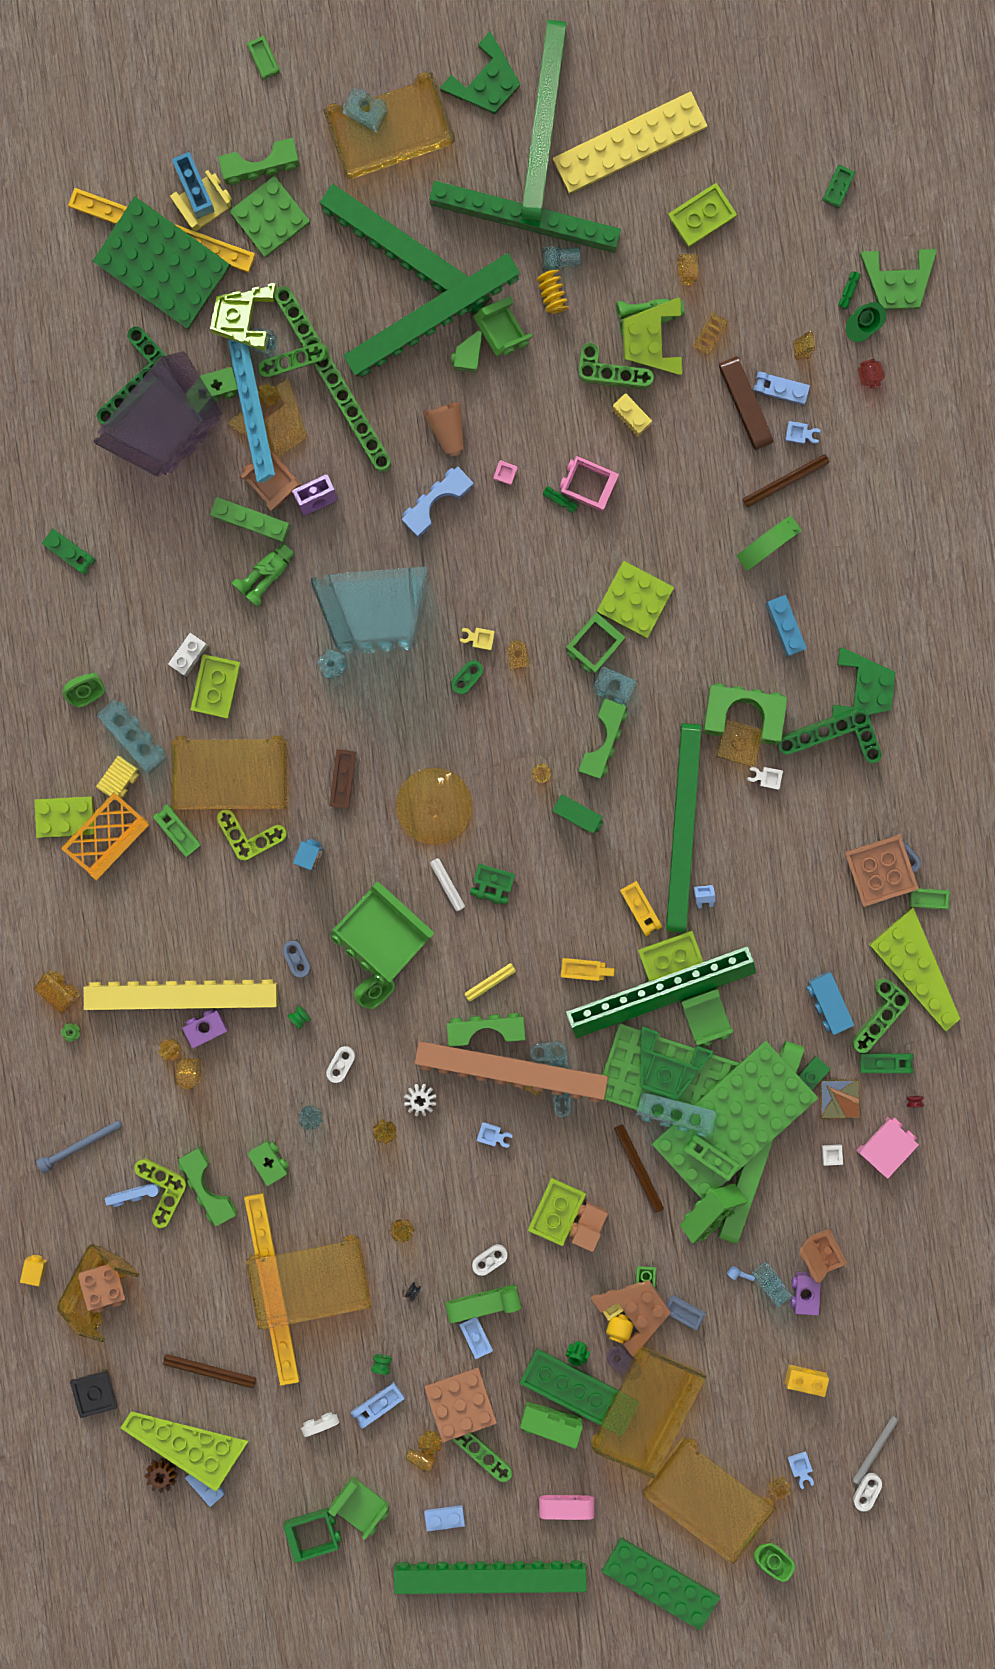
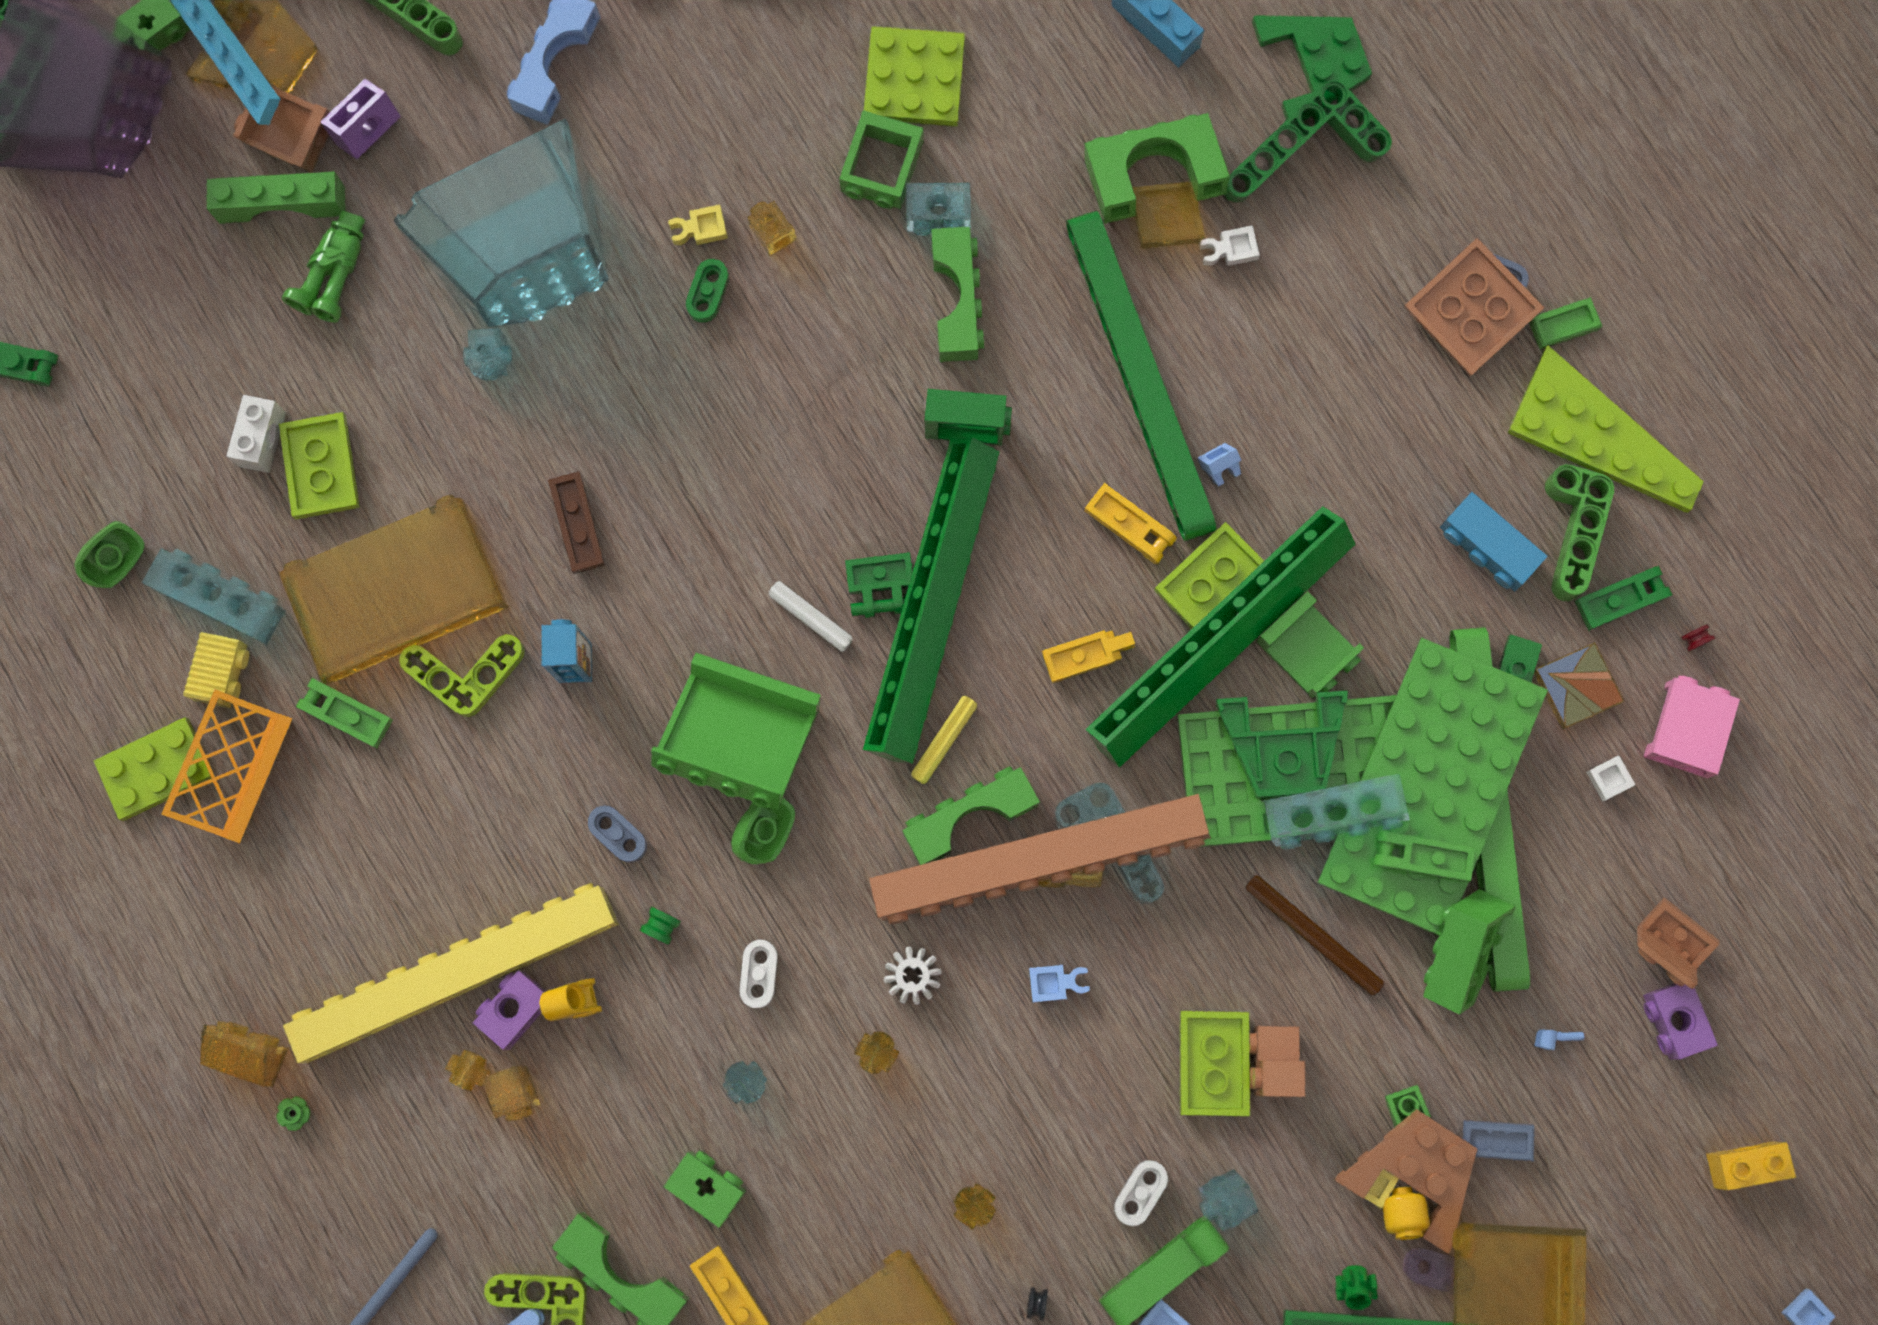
camera: 25 degrees left, 10 degrees down
(237, 1037) = (570, 1001): none -> yellow piece
(434, 806) = (738, 505): clear yellow dish -> none
(515, 905) = (931, 600): none -> green brick
(531, 1283) = (1227, 1200): none -> clear light blue brick
(539, 774) = (884, 391): clear yellow wheel -> none
(772, 1284) = (1617, 1029): clear light blue brick -> none

